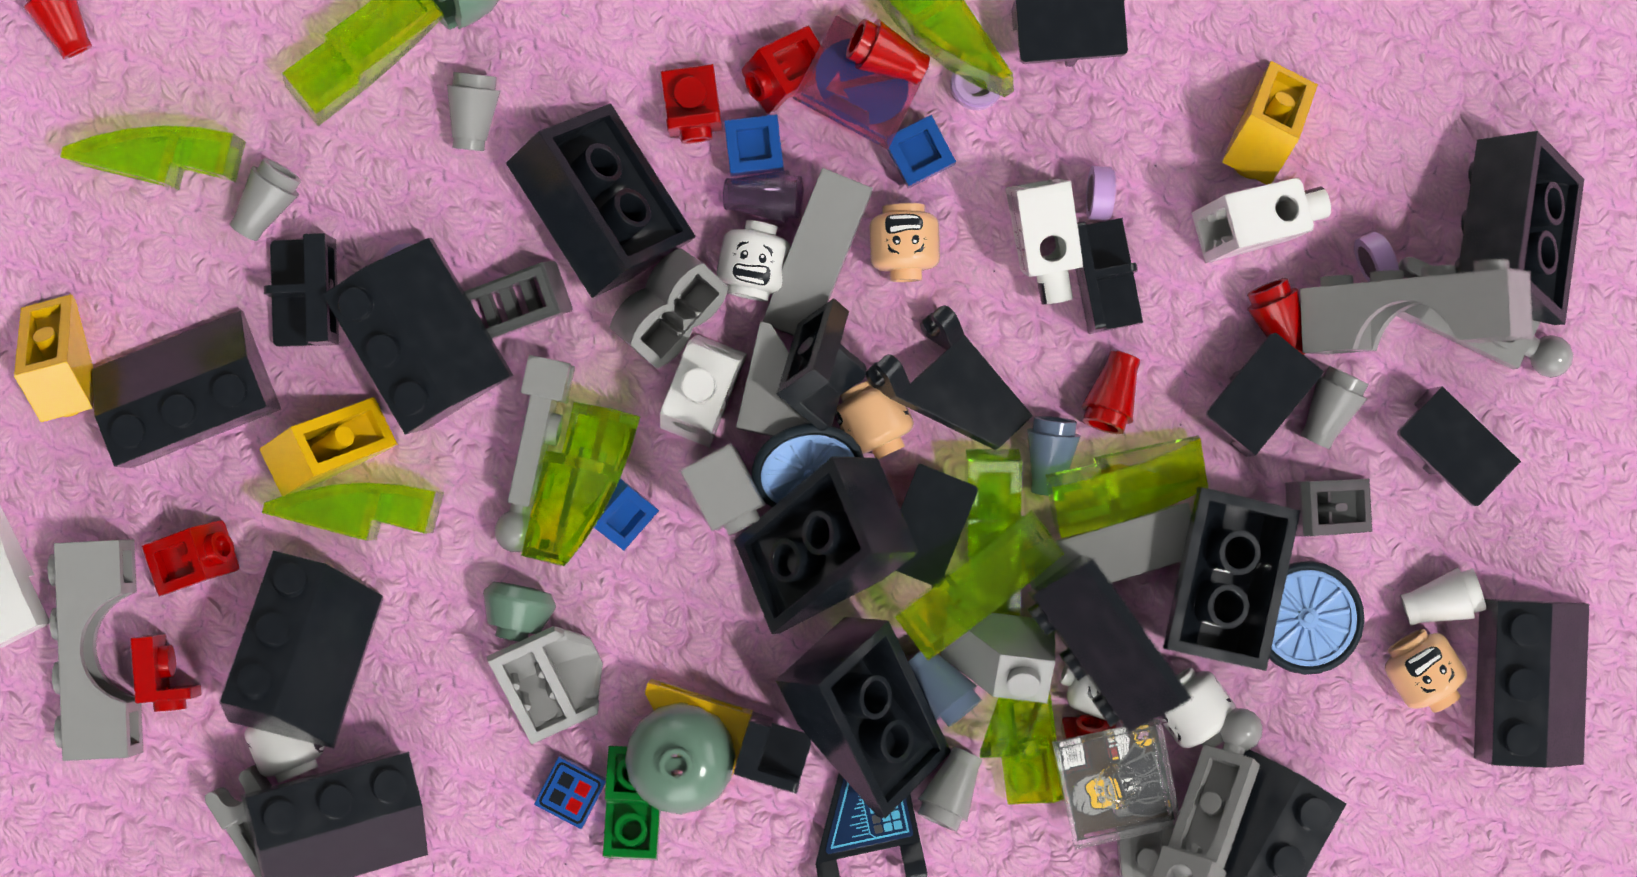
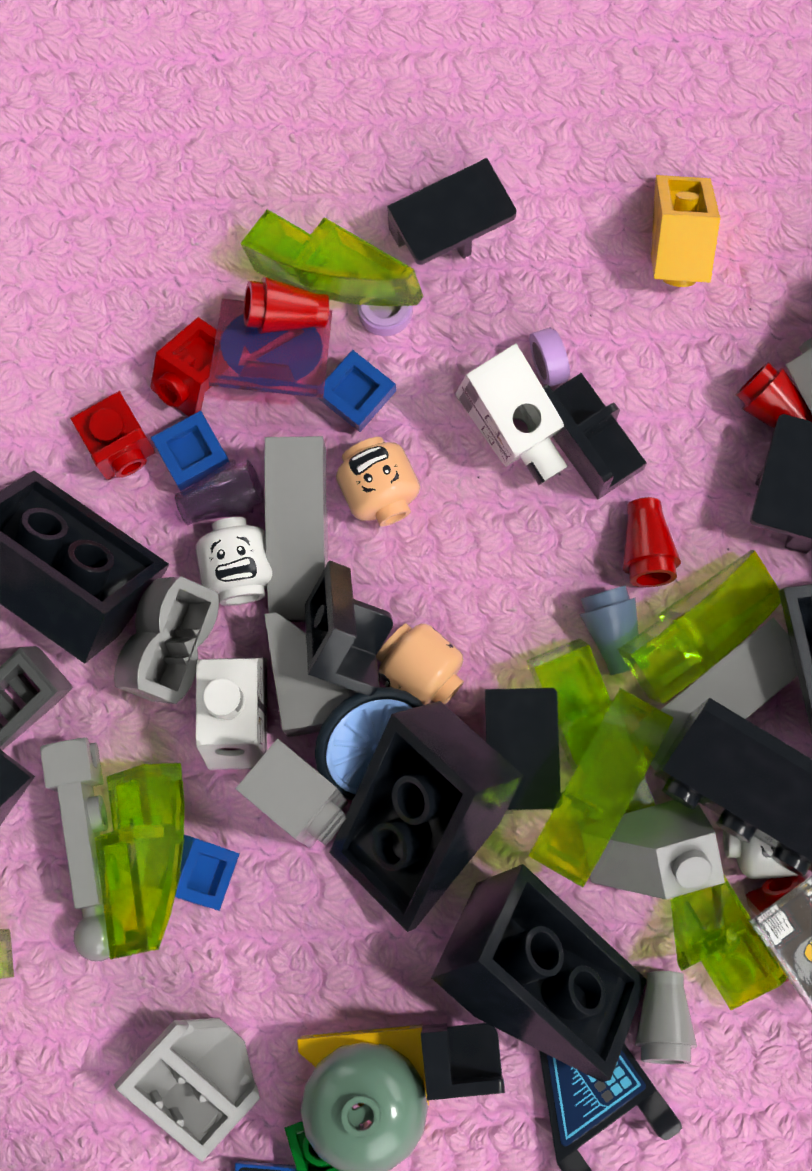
camera: 20 degrees left, 10 degrees down
(517, 609) = (129, 1020): sand green cone -> none
(945, 688) = (612, 913): sand blue cone -> none
(956, 388) = (488, 602): black flag -> none
(1258, 218) = (712, 316): white torso -> none

